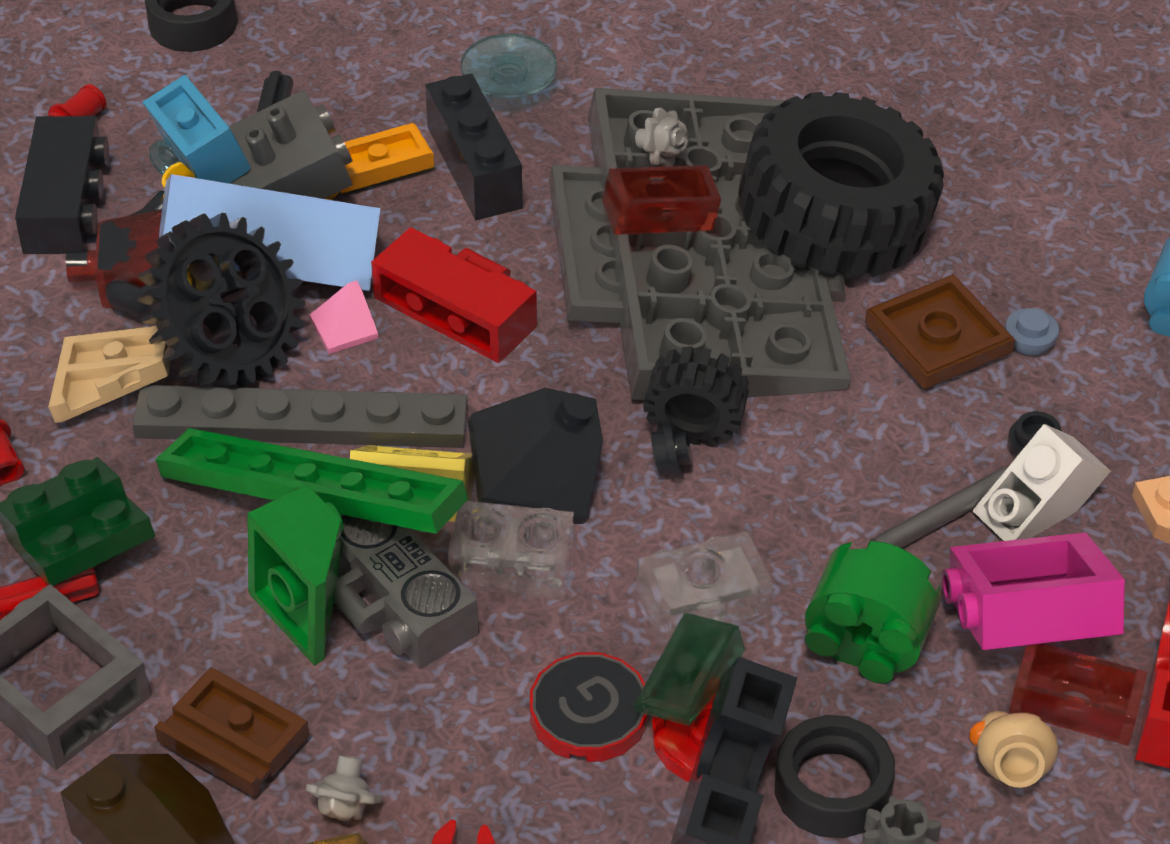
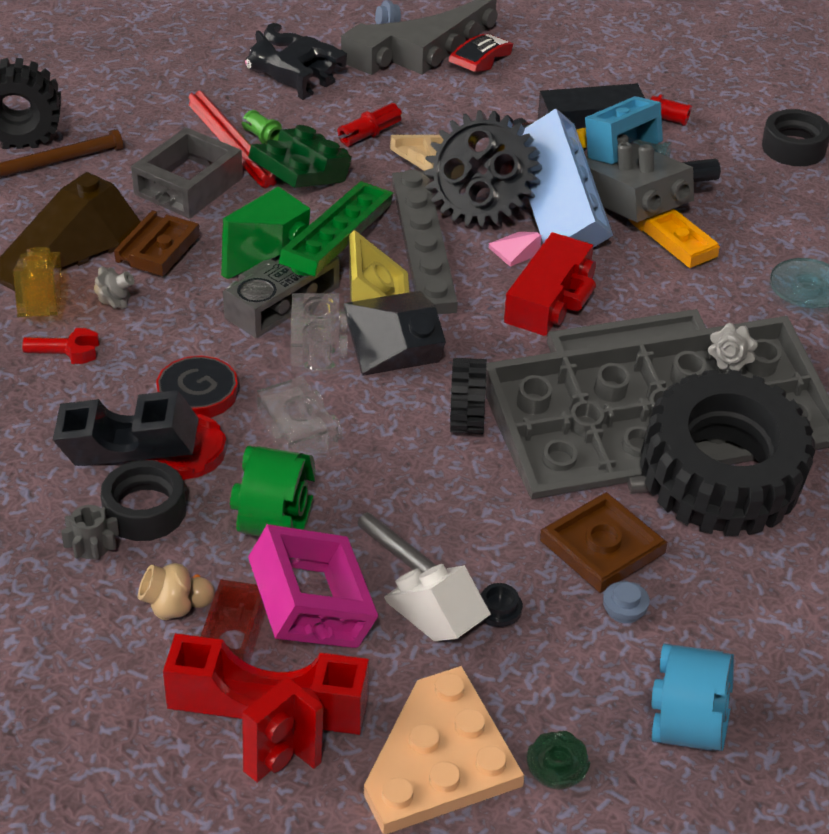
camera: 80 degrees right, 5 degrees down
(474, 146) = (705, 272): black brick -> none
(637, 203) = (657, 334): clear red piece -> none
(671, 451) = (427, 400): black plate -> none
(690, 669) = (228, 421): clear green slope -> none

